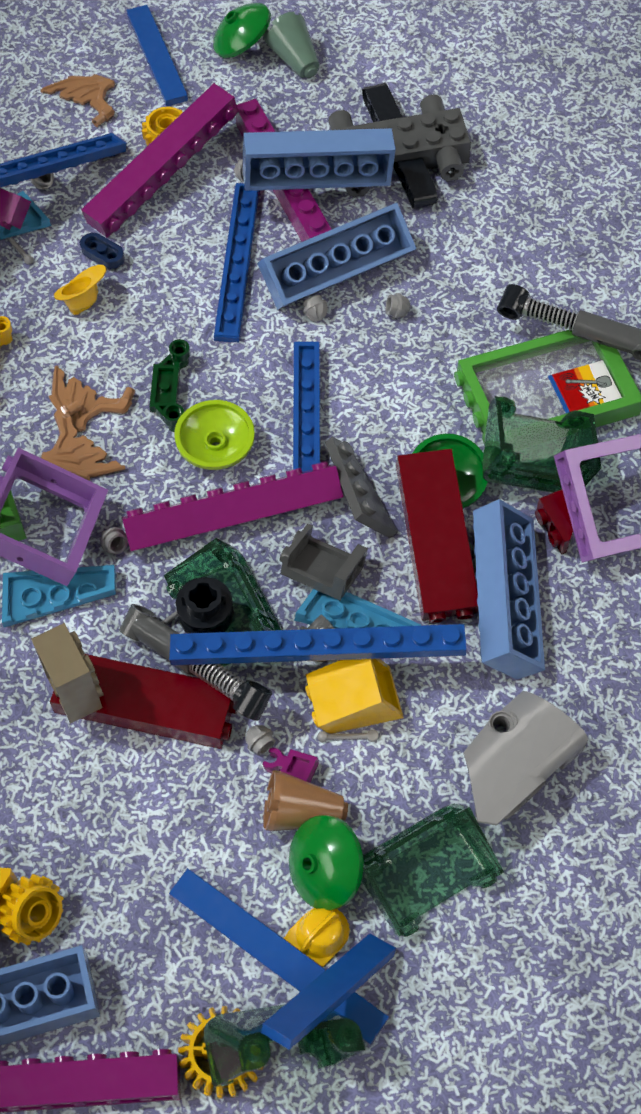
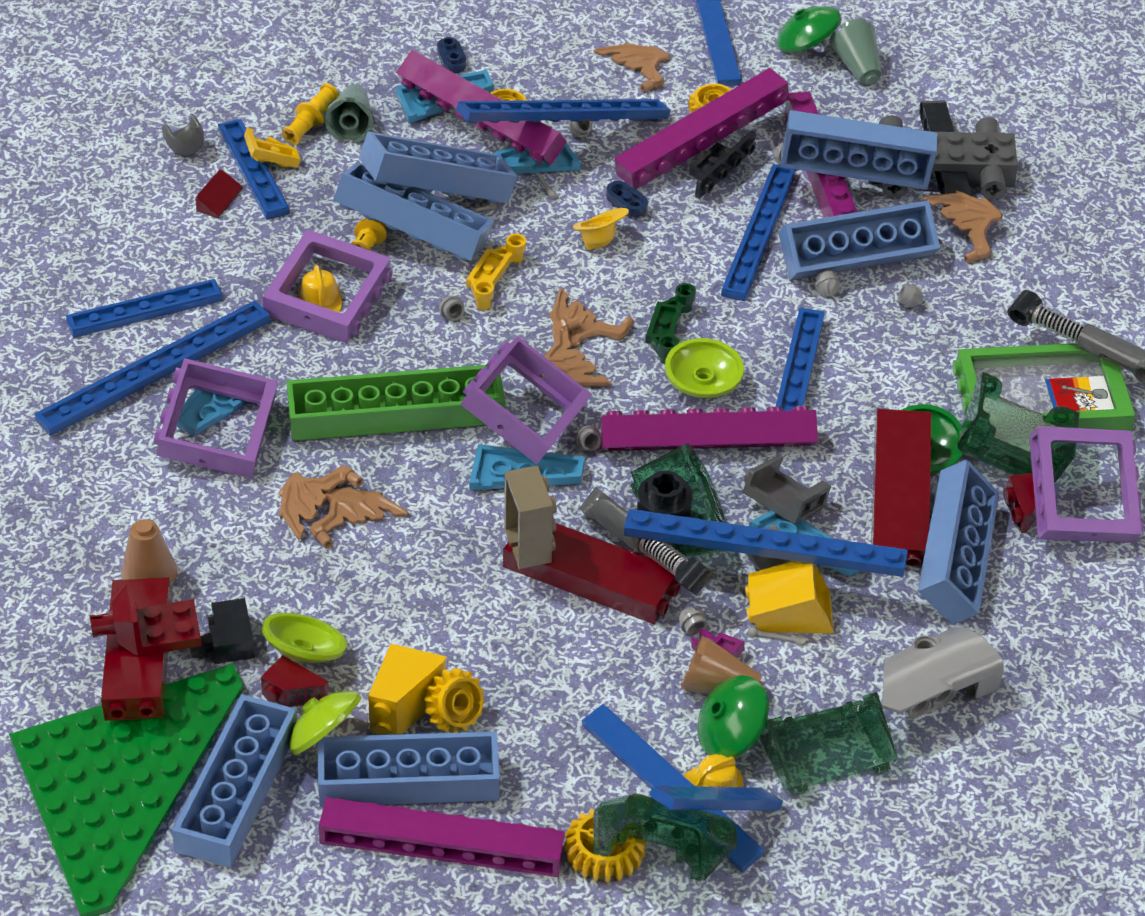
camera: 10 degrees right, 15 degrees down
(182, 192) = (718, 162): none -> black bracket
(358, 490) = (834, 440): dark grey wing -> none
(435, 204) = (969, 214): none -> medium nougat animal

